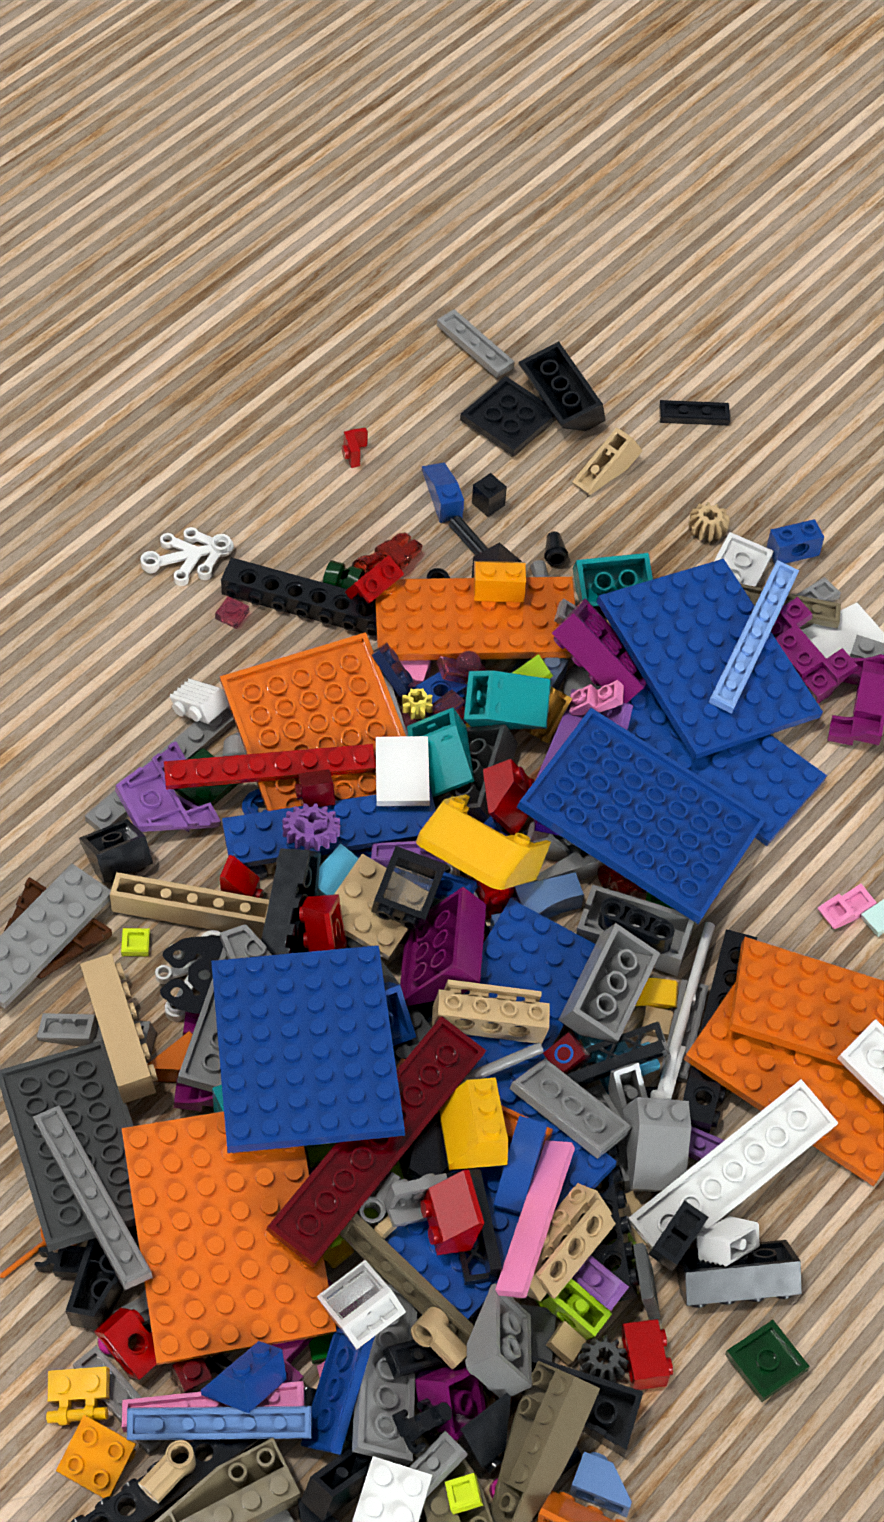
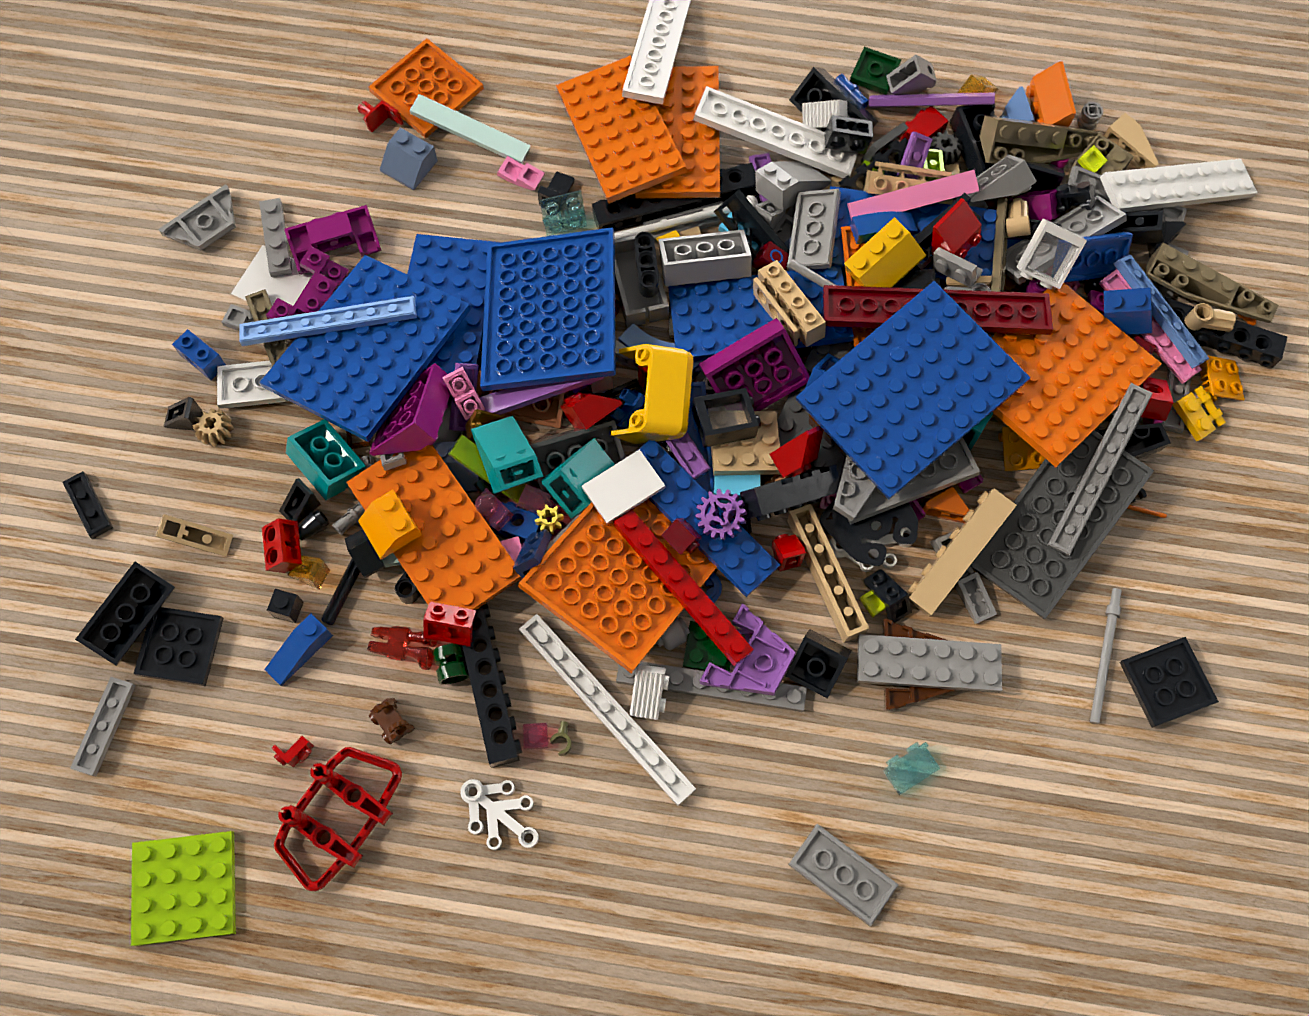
camera: 120 degrees left, 15 degrees up
(133, 947) = (890, 593): none -> black bracket
(175, 674) = (607, 710): none -> white plate
(211, 632) = (562, 733): none -> olive piece
(271, 432) = (312, 829): none -> red piece
(301, 340) = (183, 888): none -> lime plate
(327, 515) = (390, 721): none -> reddish brown piece
(509, 527) = (311, 572): none -> clear yellow slope
(548, 514) = (281, 545): none -> red brick
(584, 548) = (299, 502): none -> black slope
(663, 1461) = (978, 84): none -> clear yellow slope
(675, 1381) = (932, 99): none -> medium lavender tile
(722, 1374) = (912, 77): none -> light grey torso
(737, 508) = (183, 414): none -> black slope
(753, 1313) = (852, 89): none -> blue pin
(762, 909) = (563, 213): none -> clear light blue hinge
(798, 923) = (559, 185): none -> black bracket

